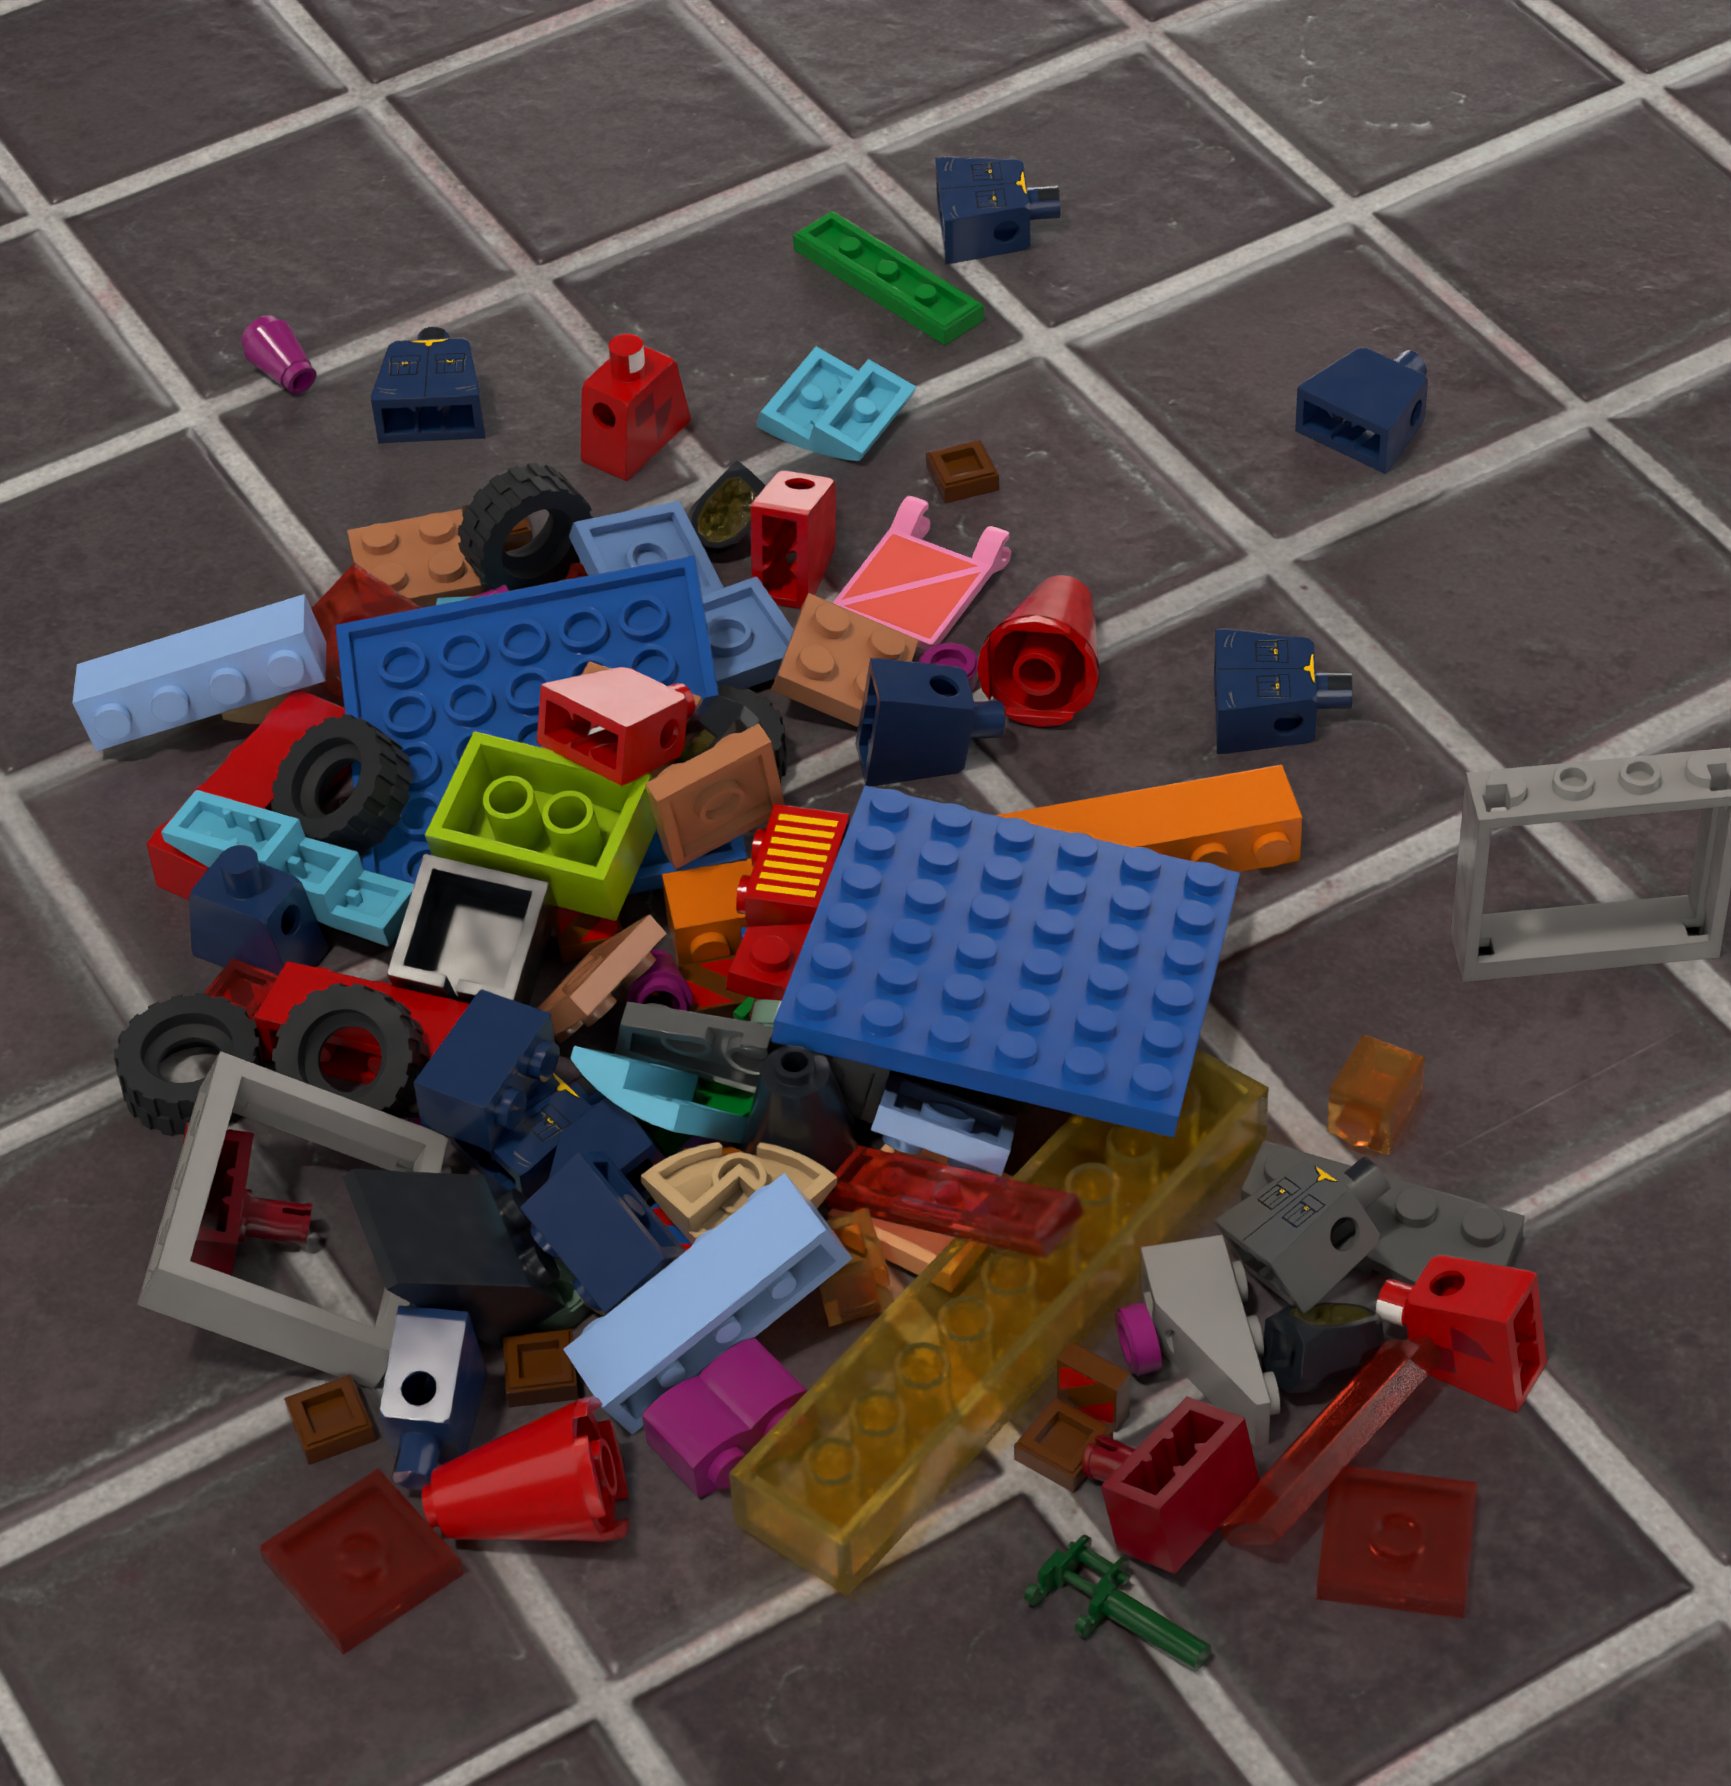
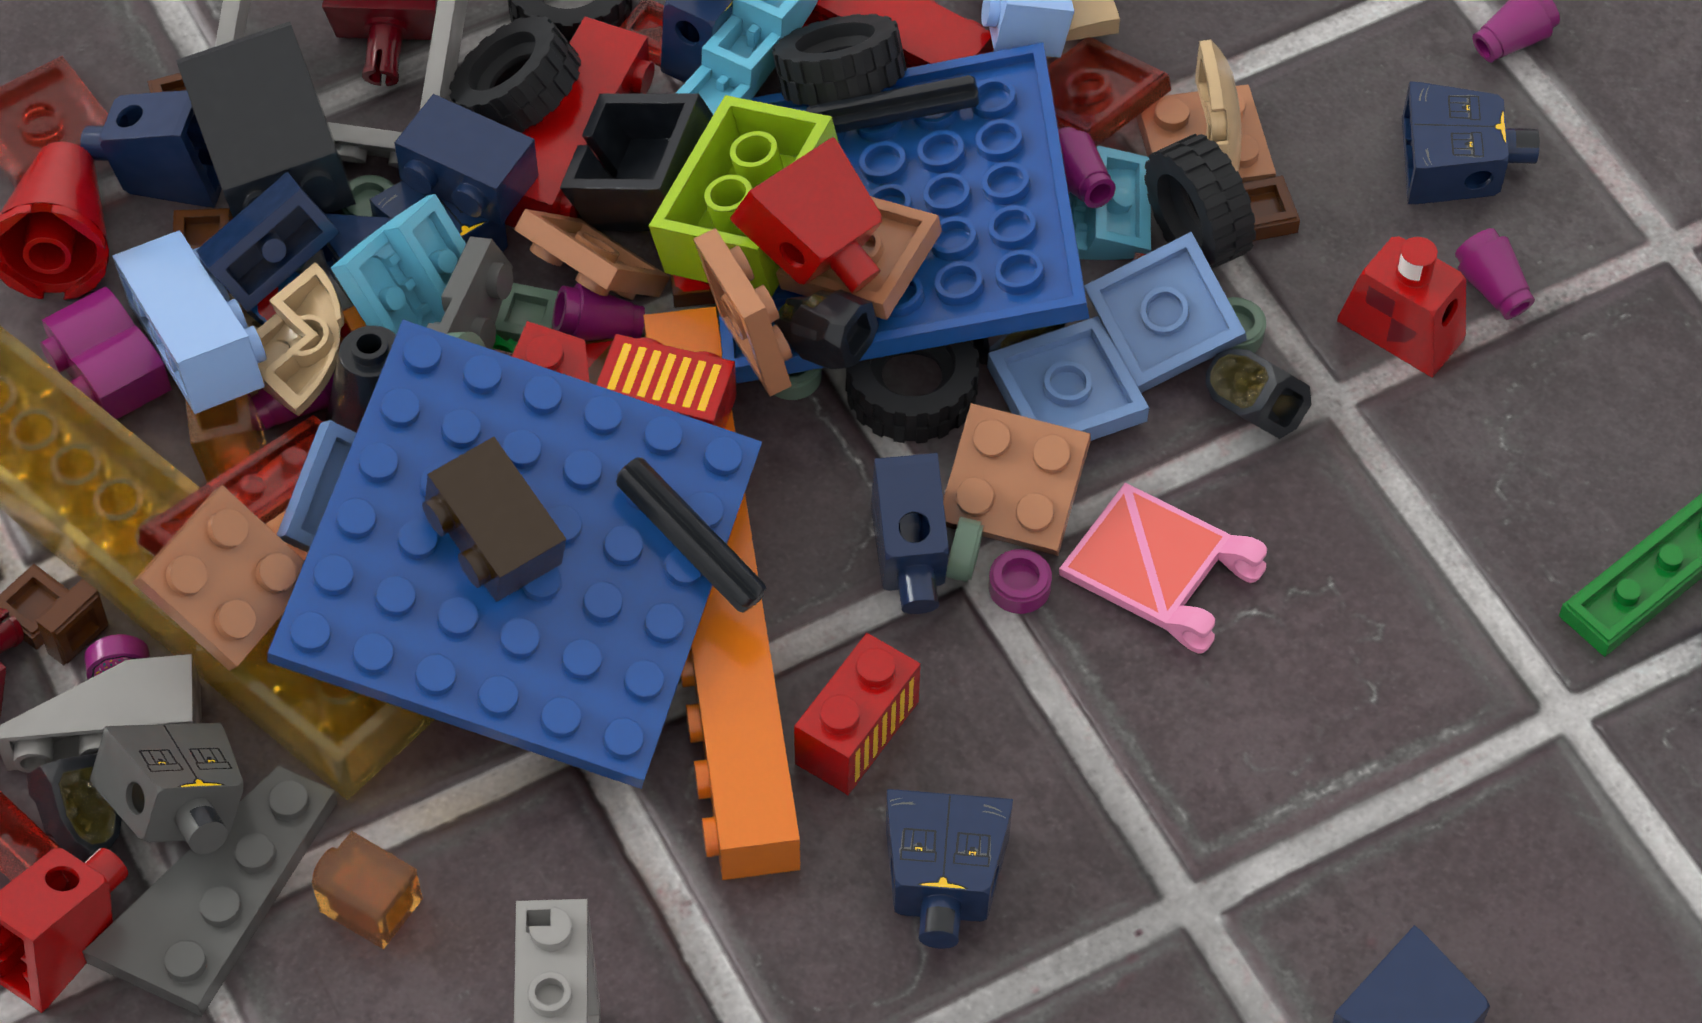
camera: 90 degrees right, 10 degrees up
(416, 732) = (900, 104): none -> black axle
(425, 501) = (1219, 100): none -> tan brick
(569, 366) = (1495, 272): none -> magenta cone
(787, 517) = (1204, 436): red torso -> none
(835, 406) = (1440, 499): medium azure slope -> none
(962, 471) = (1332, 613): reddish brown tile -> none
(992, 813) = (691, 534): none -> black axle
(1017, 926) = (493, 520): none -> dark brown brick
(1044, 655) = (1020, 652): red cone -> none
(1088, 1167) = (223, 577): none -> nougat plate
(1121, 747) = (857, 713): none -> red brick

